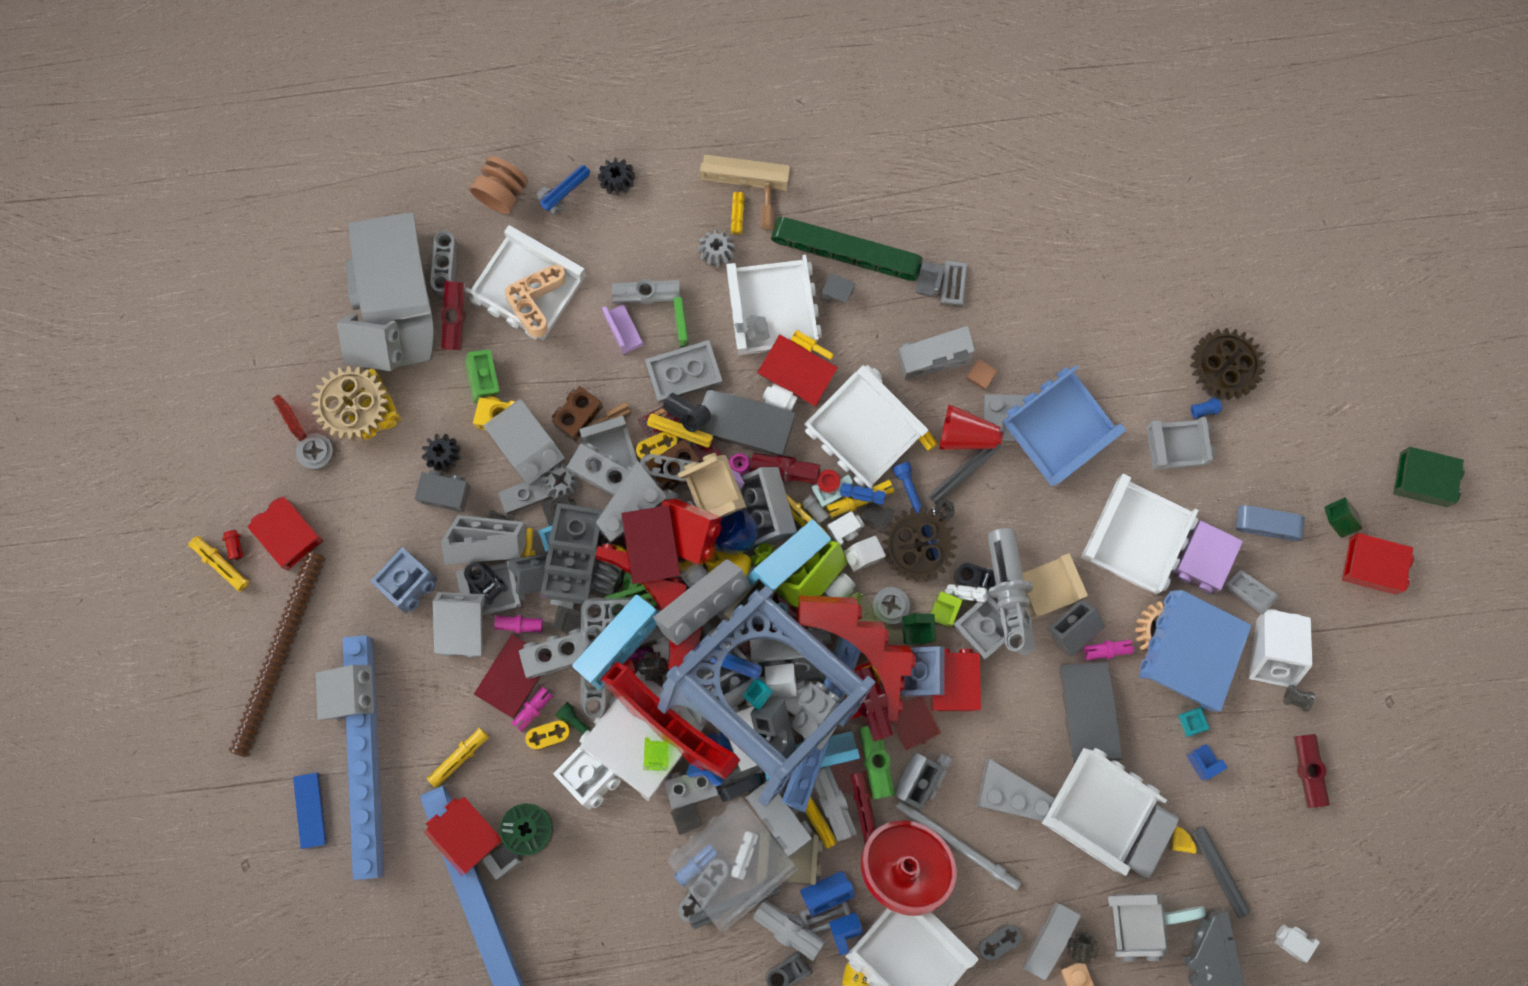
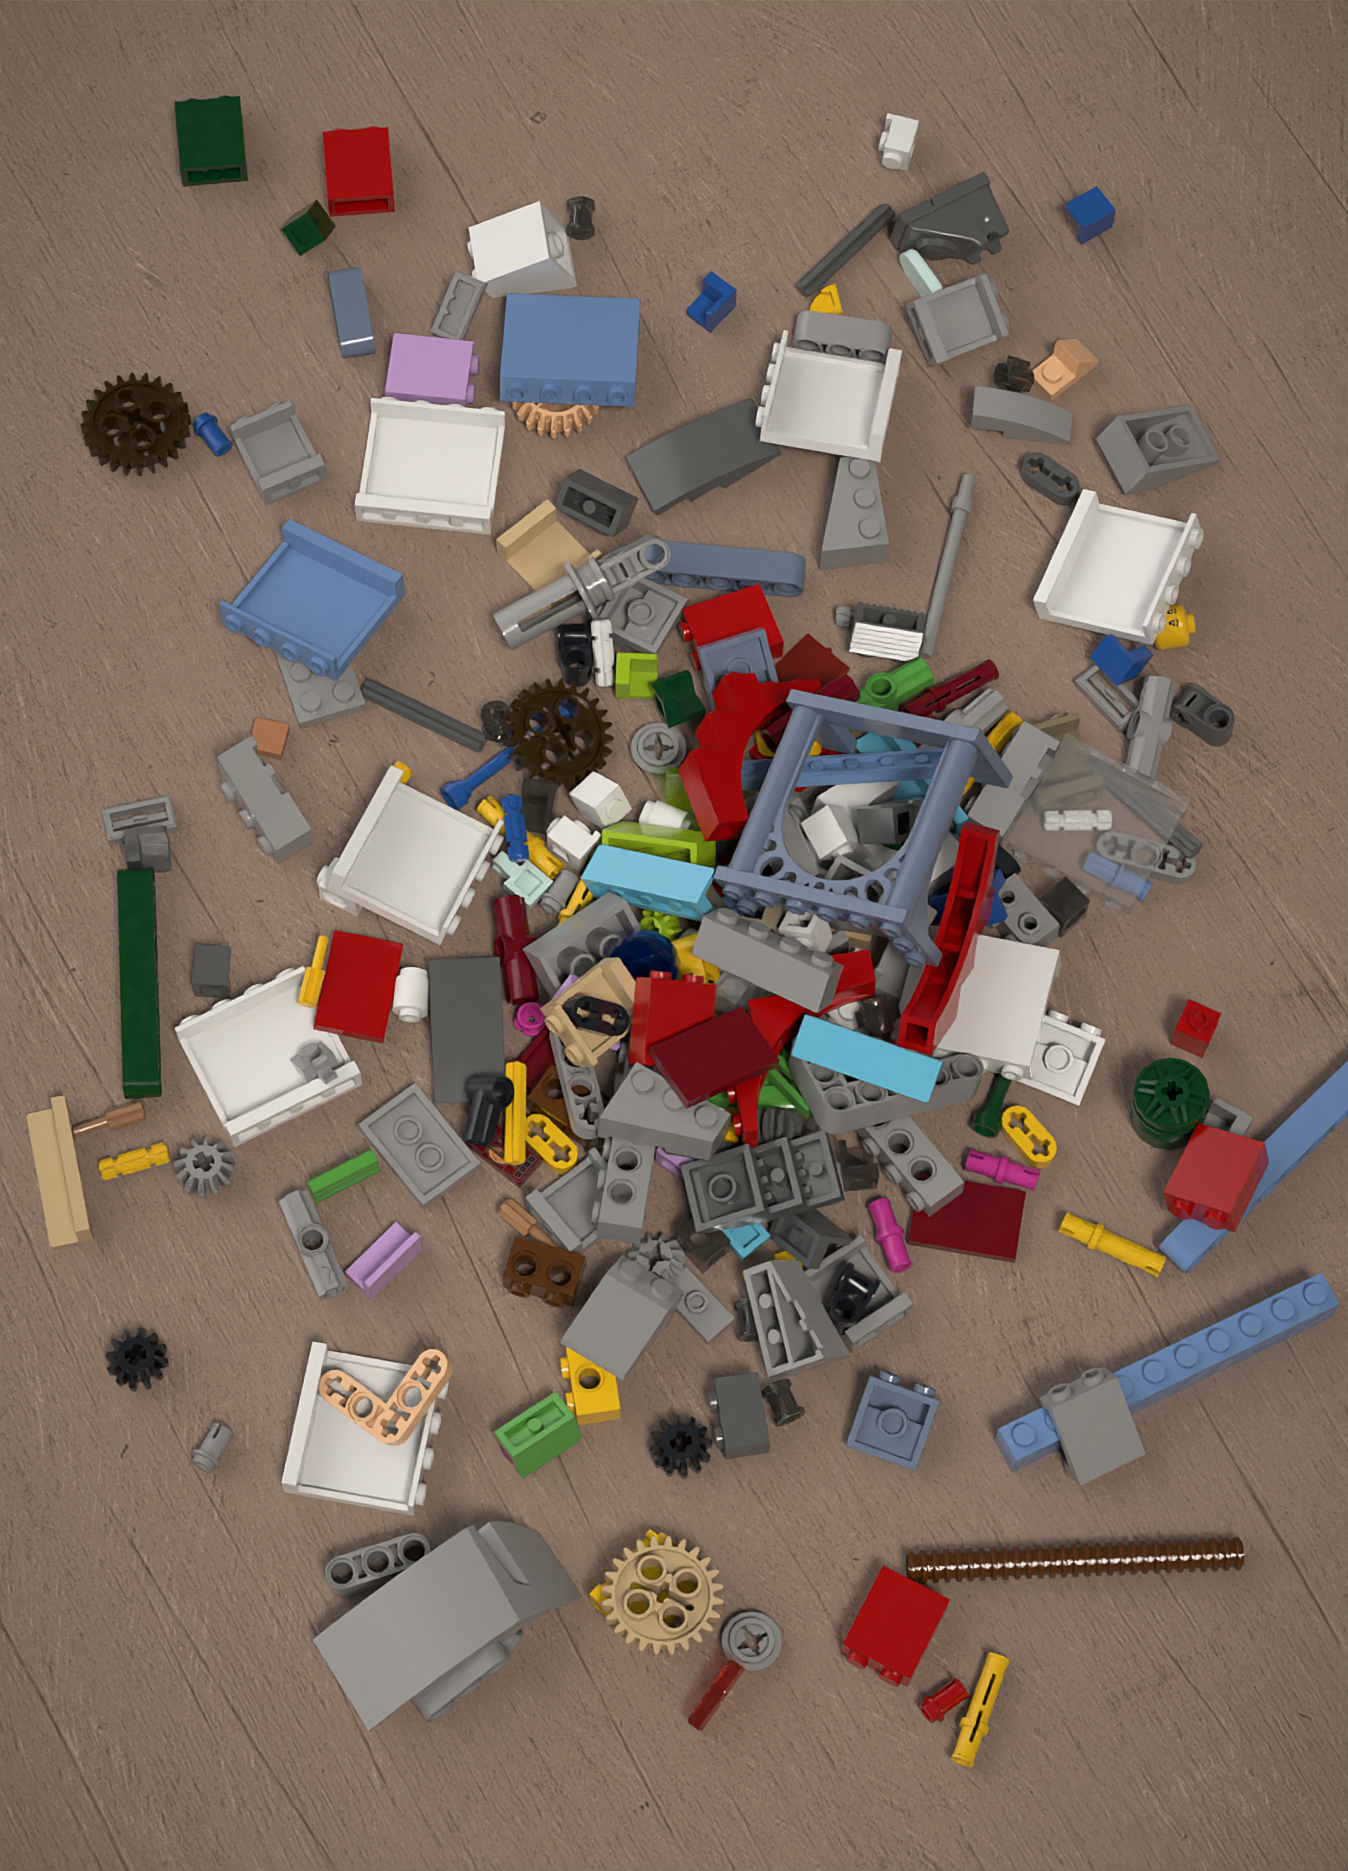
camera: 110 degrees left, 10 degrees down
(309, 810) = (1273, 1421): blue tile -> none
(369, 343) = (559, 1607): light grey panel -> none
(441, 520) = (782, 1415): none -> clear smoke bush
(453, 300) = (440, 1514): dark red piece -> none
(458, 624) = (926, 1304): light grey panel -> none
(498, 185) = (219, 1524): nougat wheel -> none
(565, 187) = (185, 1427): blue axle -> none
(572, 870) = (1195, 1028): none -> red brick
(655, 755) = (1000, 962): clear neon green panel -> none
(712, 488) = (597, 1008): none -> black beam
(739, 665) = (834, 932): blue axle -> none
(757, 693) = (863, 845): teal tile -> none
(816, 708) = (858, 765): light grey plate -> none
(827, 893) = (1075, 694): blue panel -> none
(828, 481) = (514, 880): red tile -> none
(908, 868) = (1006, 604): red dish -> none
(968, 431) = (369, 723): red cone -> none
(1002, 698) = (729, 568): none -> sand blue beam
(1108, 649) = (608, 459): dark pink pin -> none
(1193, 722) = (663, 334): teal tile -> none
(1314, 787) = (687, 172): dark red piece -> none

